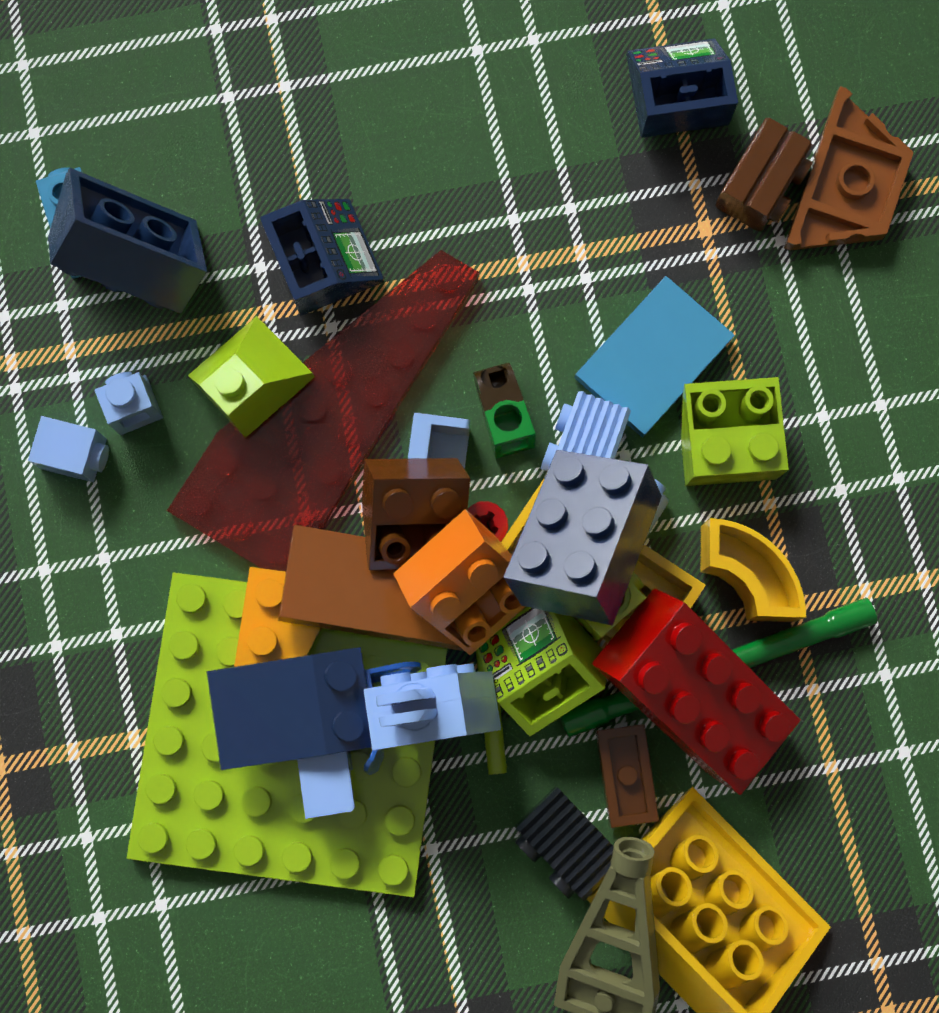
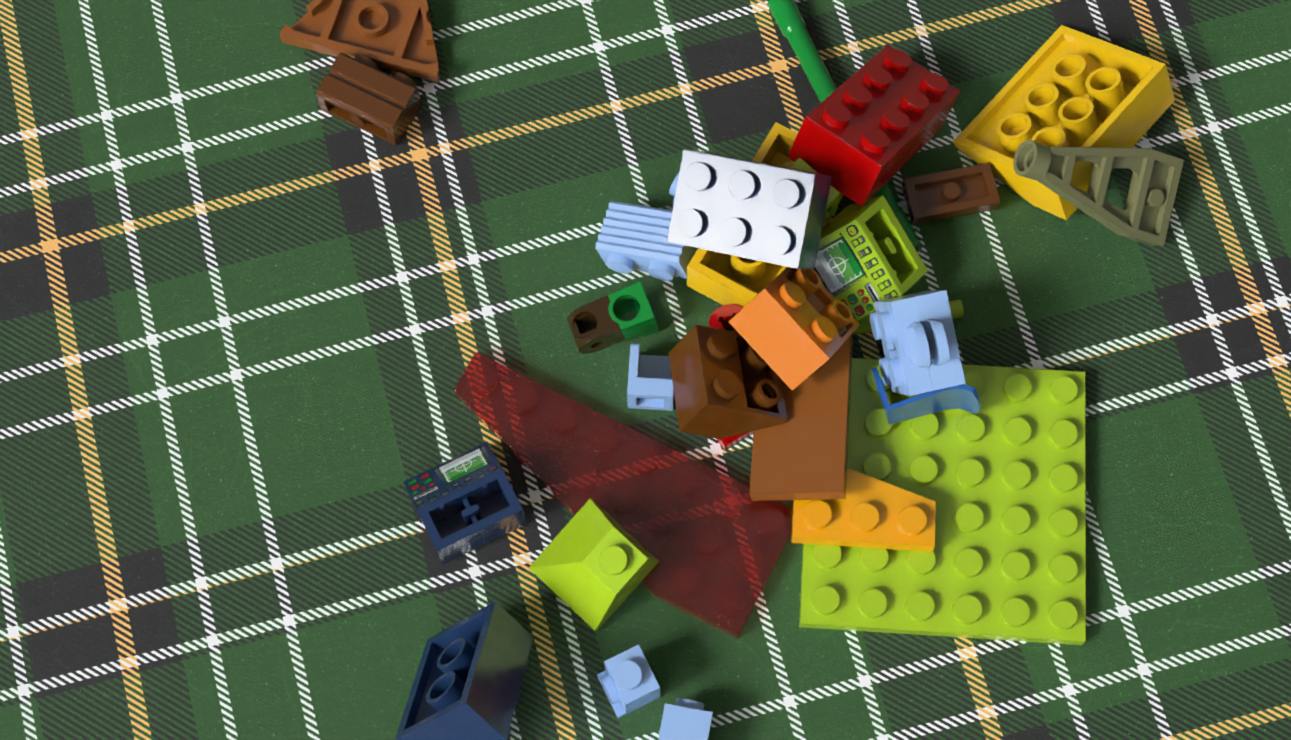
camera: 90 degrees left, 10 degrees down
(289, 708) = (928, 476): dark blue slope -> none
(326, 784) = (994, 444): light blue panel -> none
(567, 843) = (1018, 239): black brick -> none
(654, 355) = (549, 190): dark azure tile -> none
(682, 87) = (278, 173): dark blue slope -> none
(733, 432) = (626, 113): lime slope -> none
(754, 570) = (754, 89): yellow brick -> none

